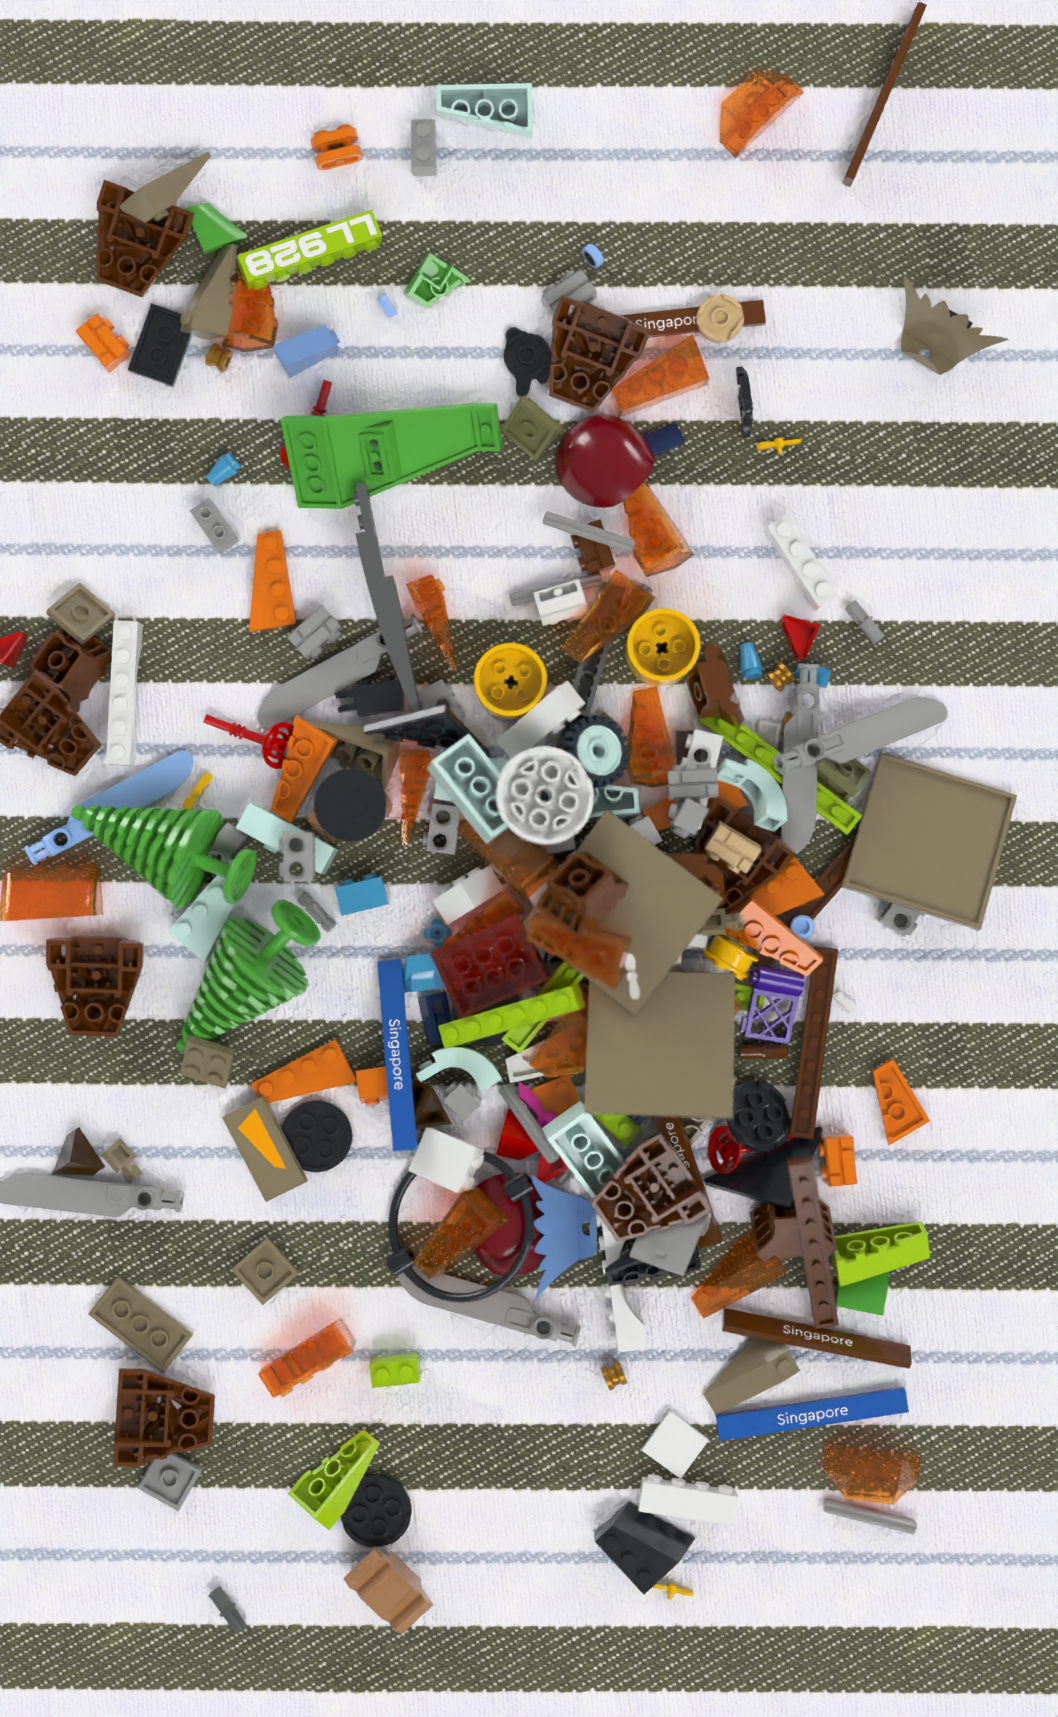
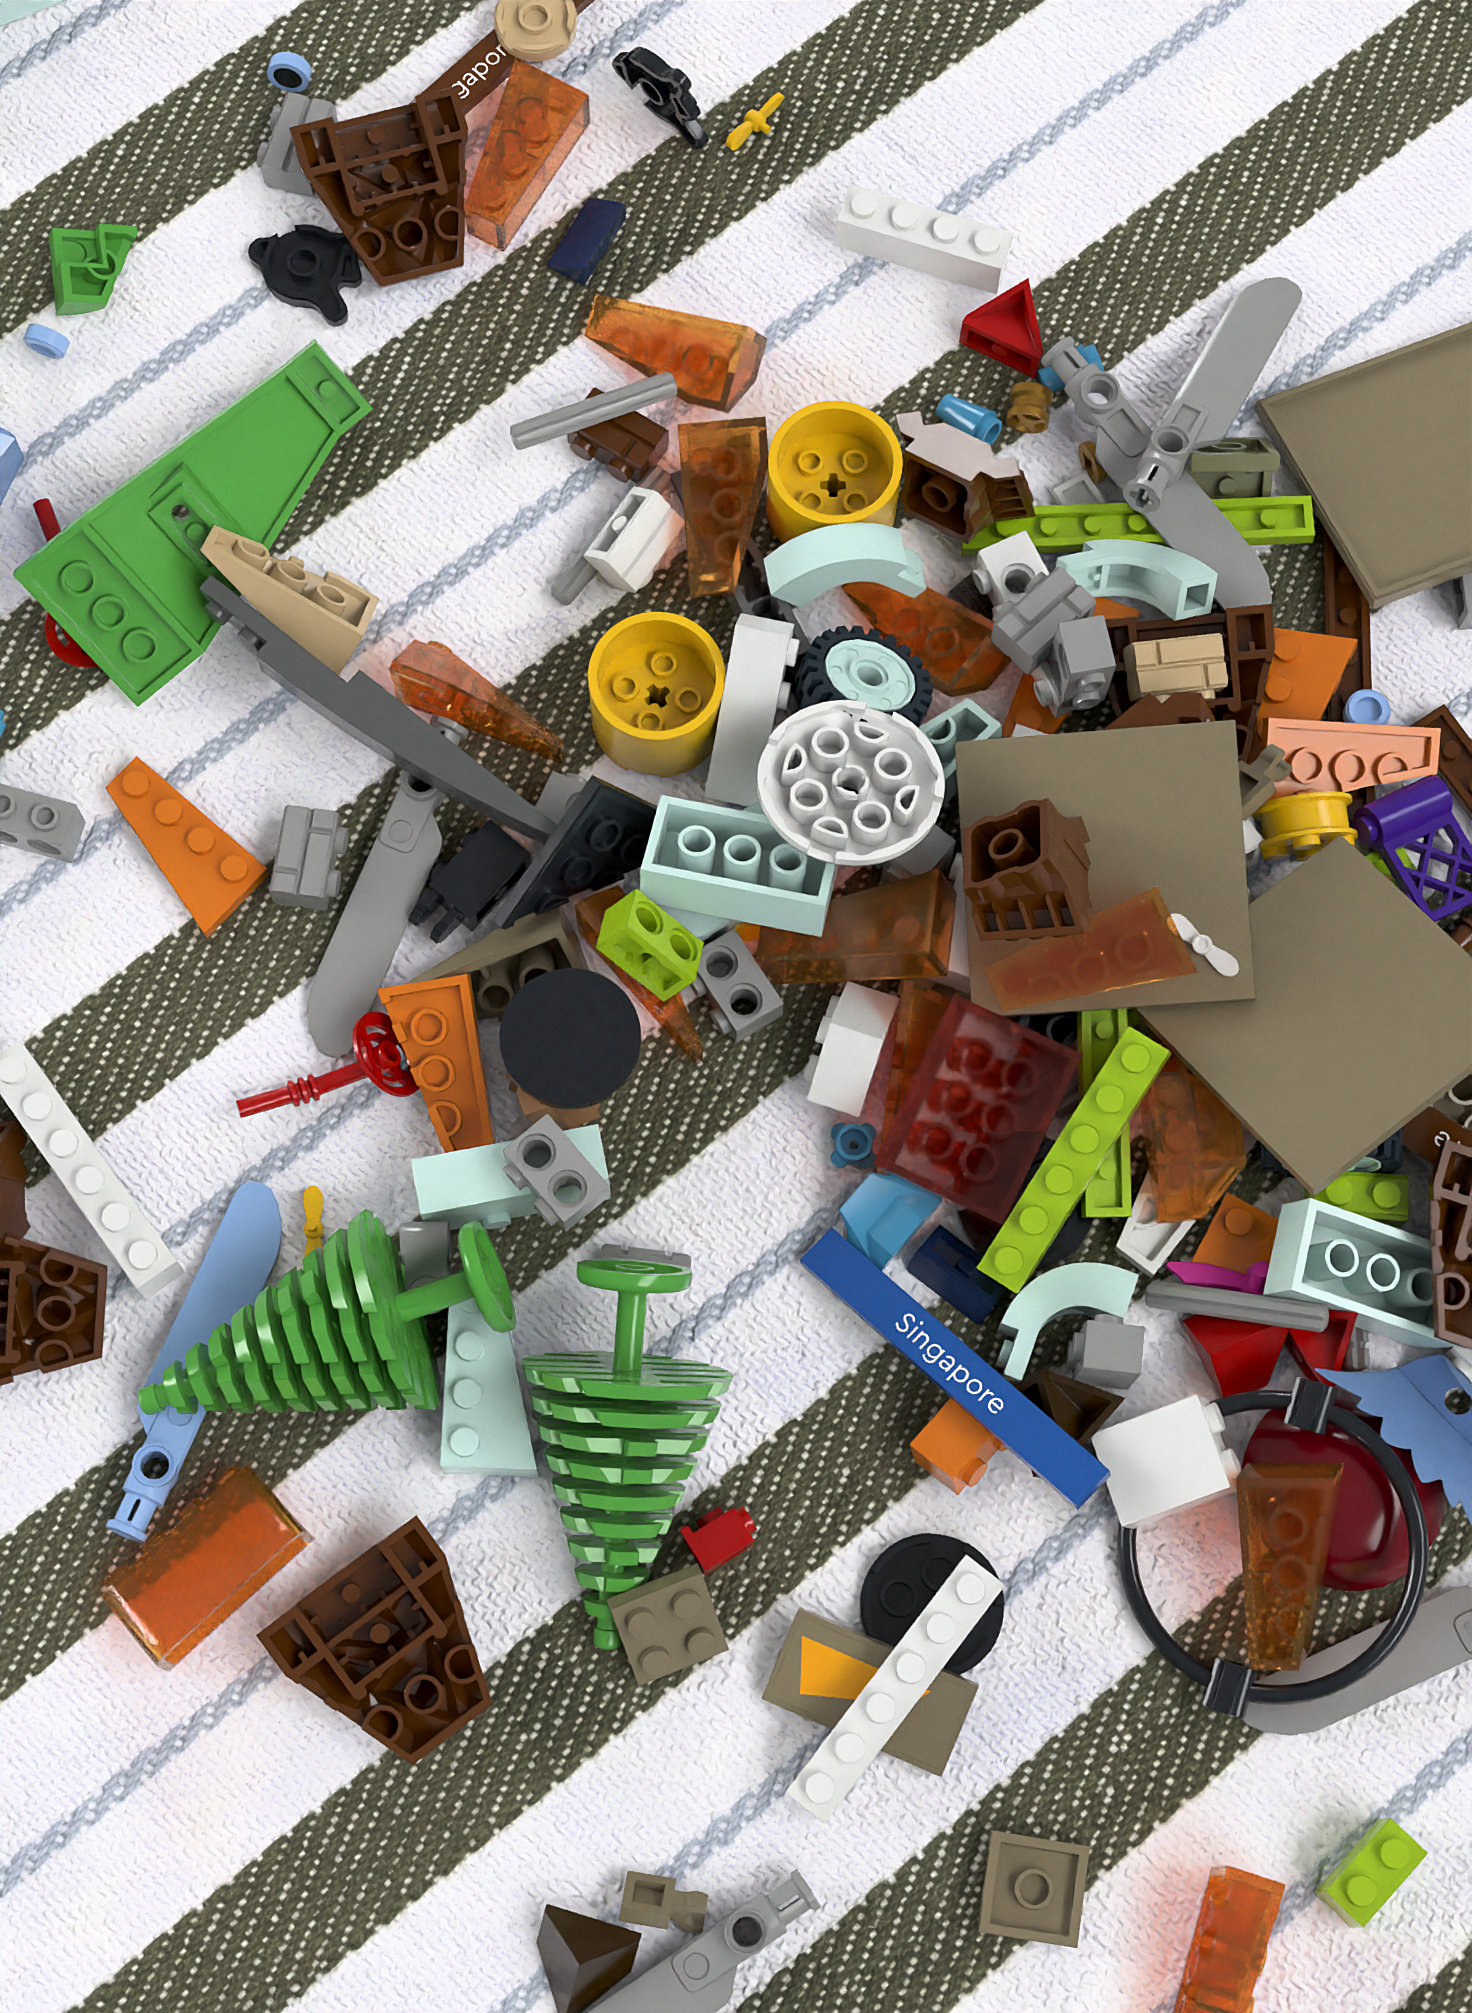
camera: 40 degrees left, 15 degrees down
(255, 1044) = (719, 1537): none -> red brick
(274, 1157) = (895, 1689): none -> white arch
(308, 1074) = (842, 1513): orange wing -> none
(361, 895) = (694, 1175): dark azure brick -> none
(399, 524) = (316, 611): none -> tan wedge
(415, 791) = (650, 945): none -> lime brick
(531, 428) = (391, 343): olive bracket -> none
(603, 460) = (530, 317): dark red piece -> none
(635, 687) = (843, 555): none -> light aqua arch
(864, 622) = (1078, 253): light grey axle -> none

